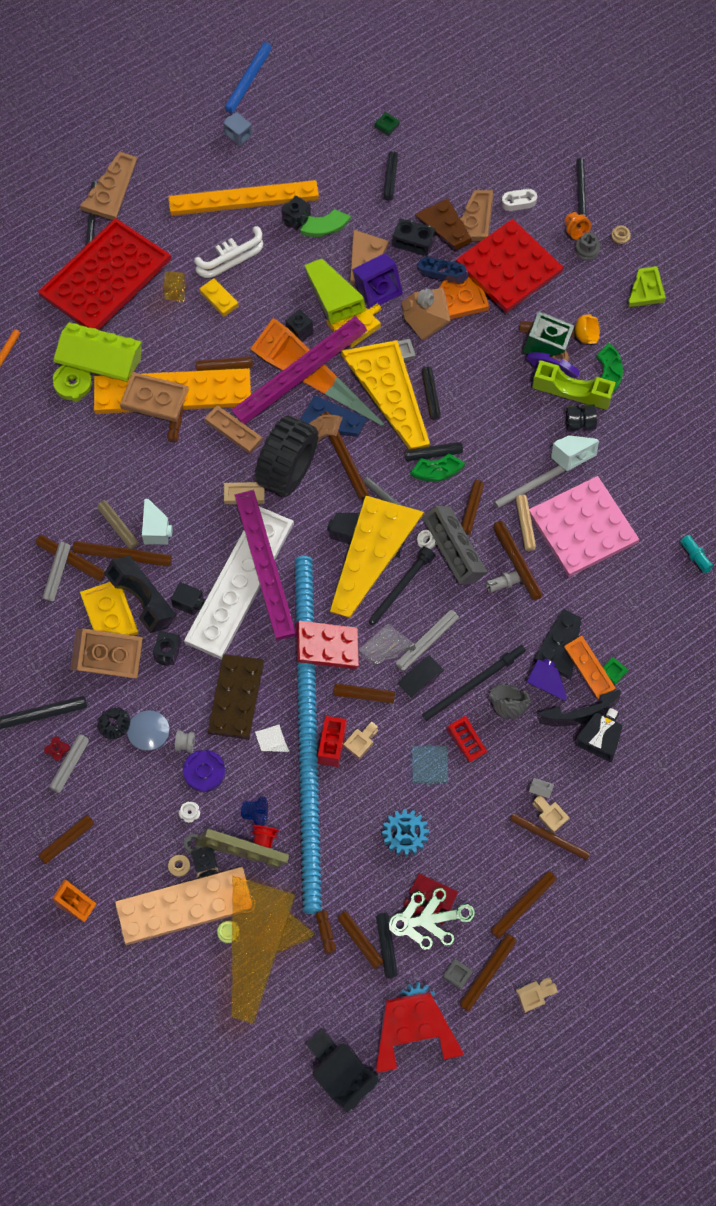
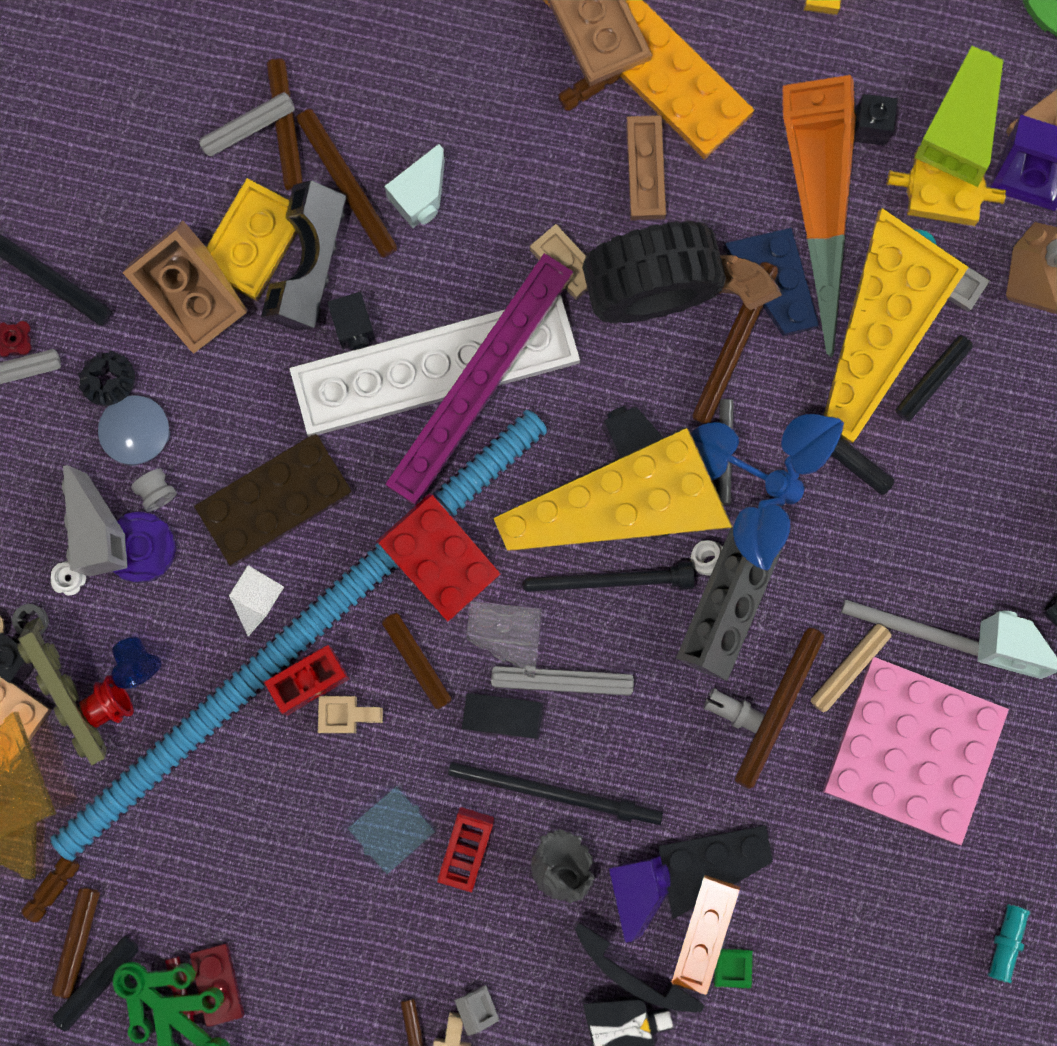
camera: 45 degrees right, 15 degrees up
(117, 524) = (381, 141): dark tan axle -> none
(166, 640) = (263, 340): black brick -> none
(180, 778) = (93, 533): none -> light grey slope
(224, 363) = (732, 71): reddish brown axle -> none
(299, 370) = (806, 178): magenta plate -> none
(411, 839) = (248, 880): dark azure gear -> none
(437, 470) = (836, 490): green tile -> none
(437, 498) = (765, 530): none -> blue plant
(472, 506) = (811, 576): reddish brown axle -> none

